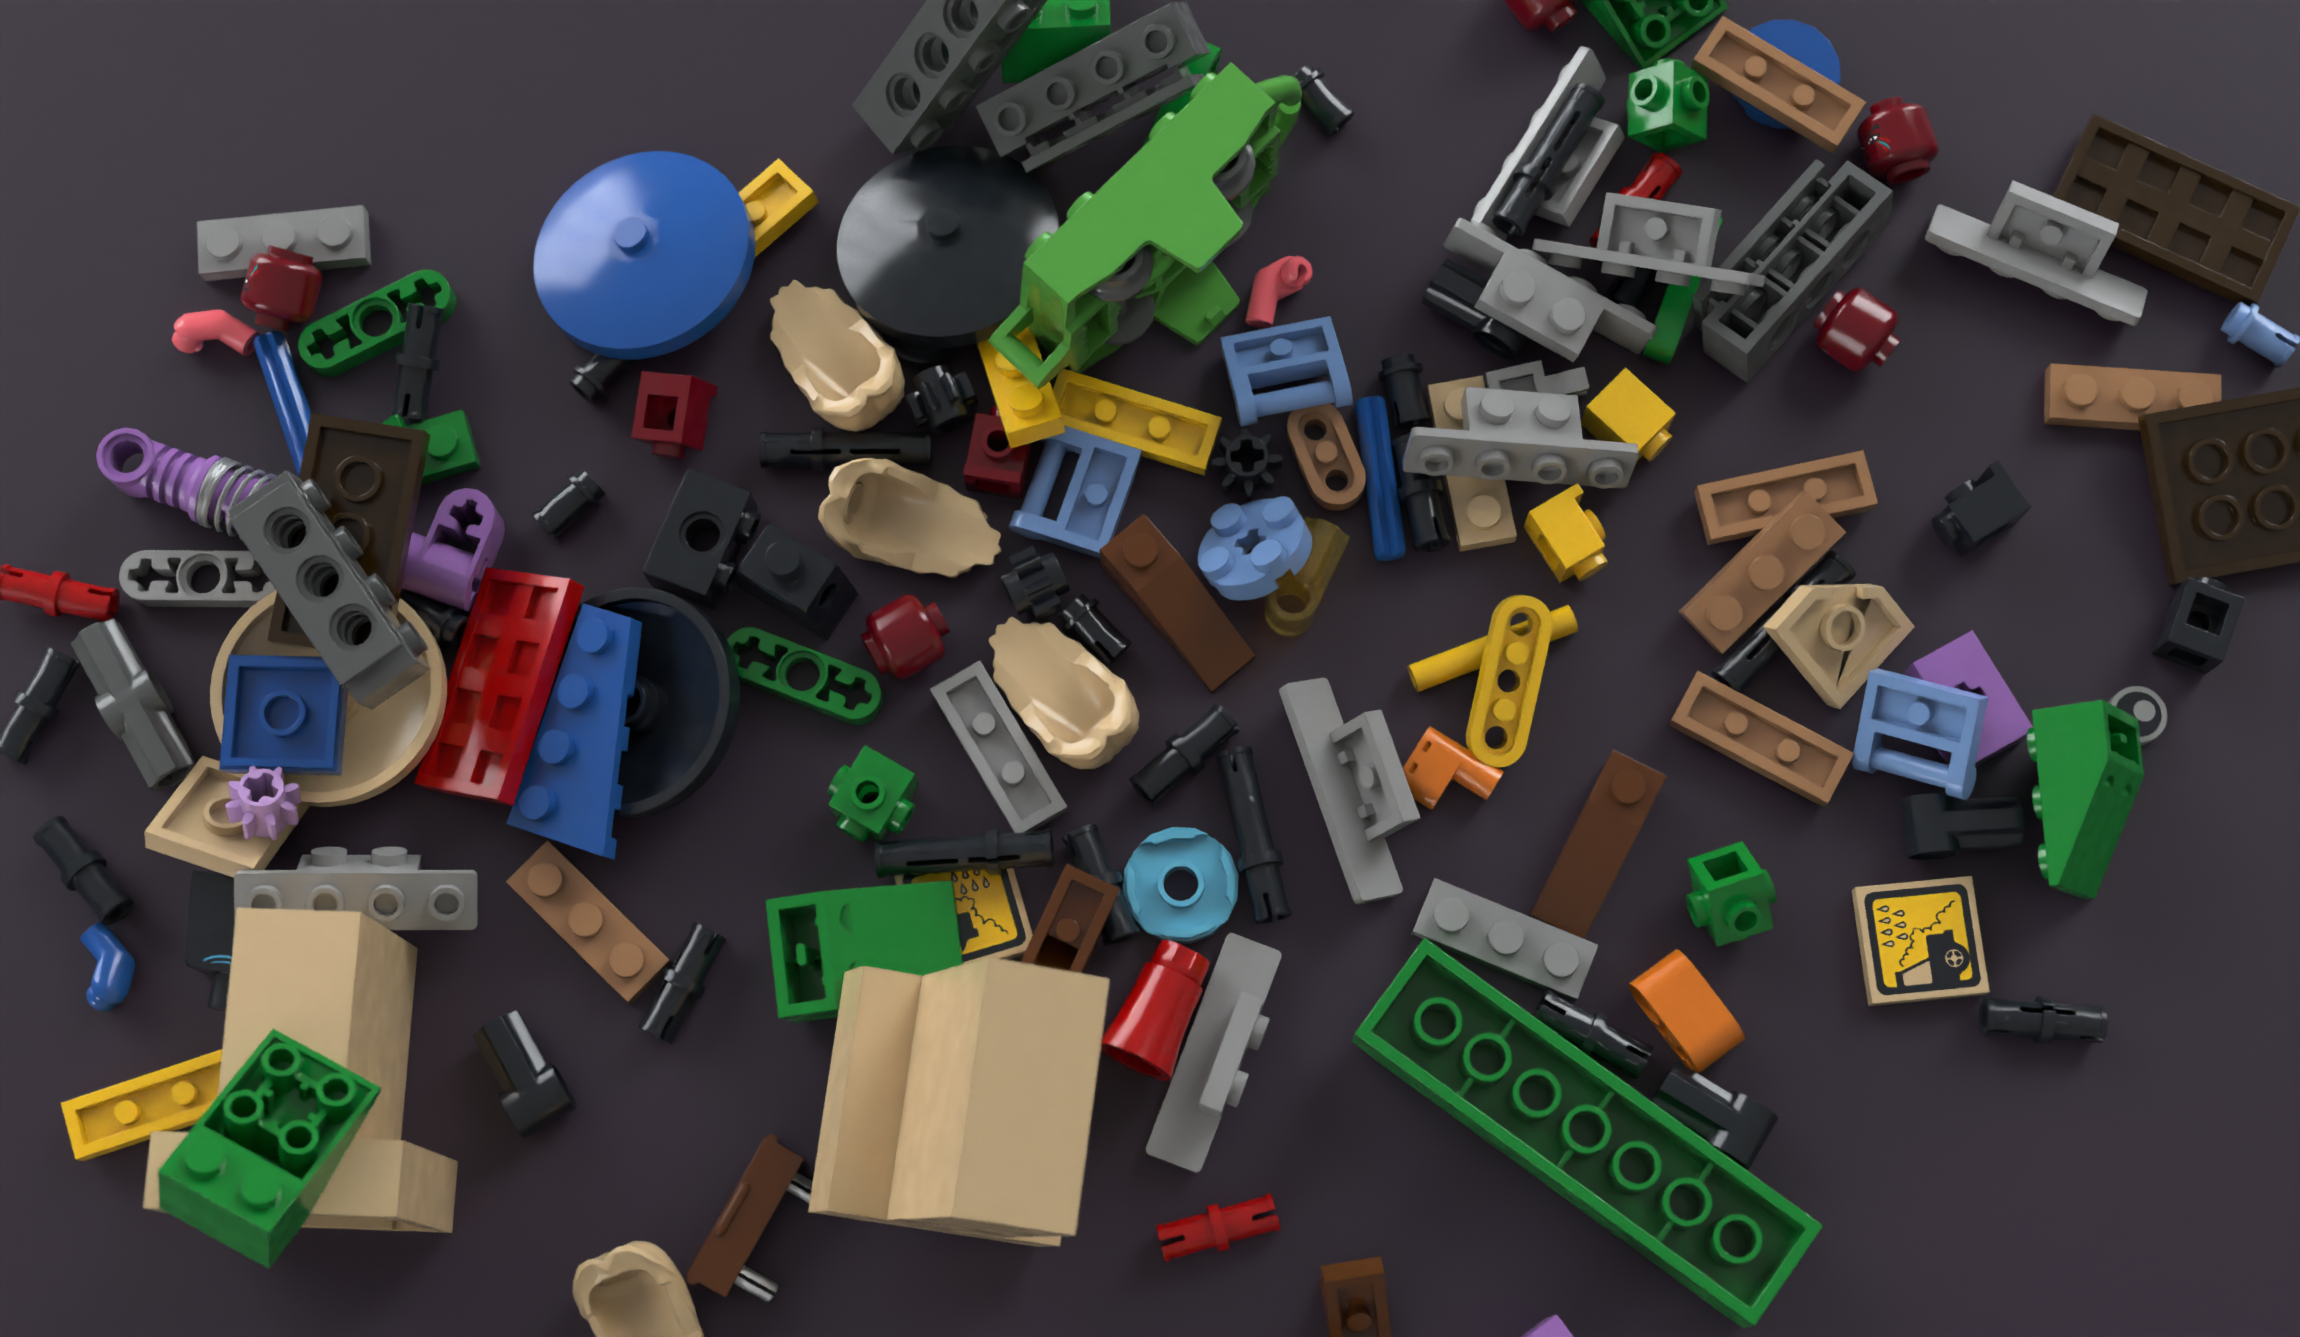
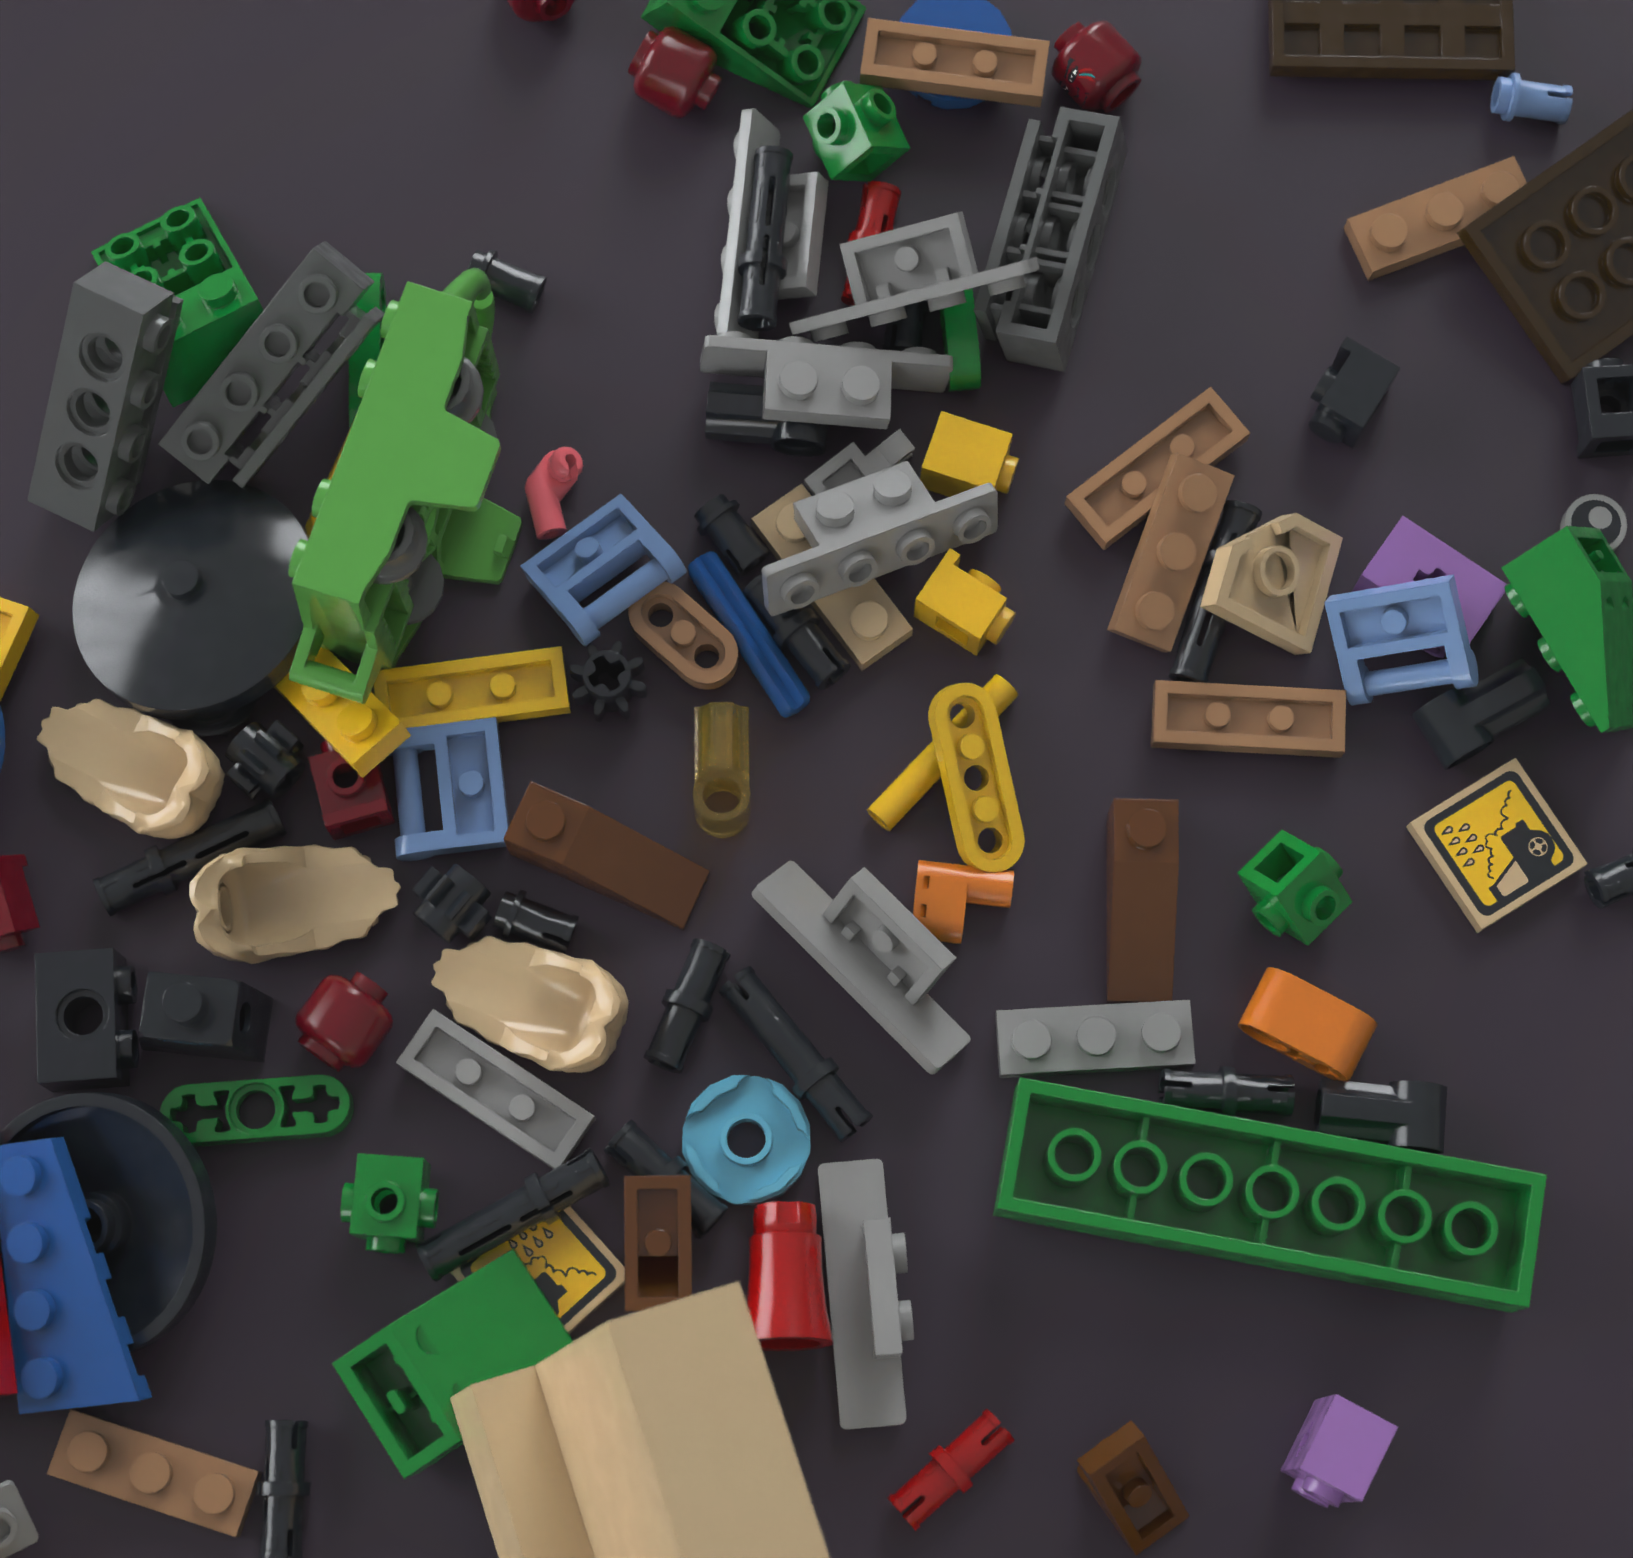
camera: 30 degrees left, 0 degrees up
(1278, 540) = (632, 750): medium blue plate -> none
(1857, 329) = (1147, 270): dark red head -> none
(2045, 246) = (1288, 106): light grey bracket -> none

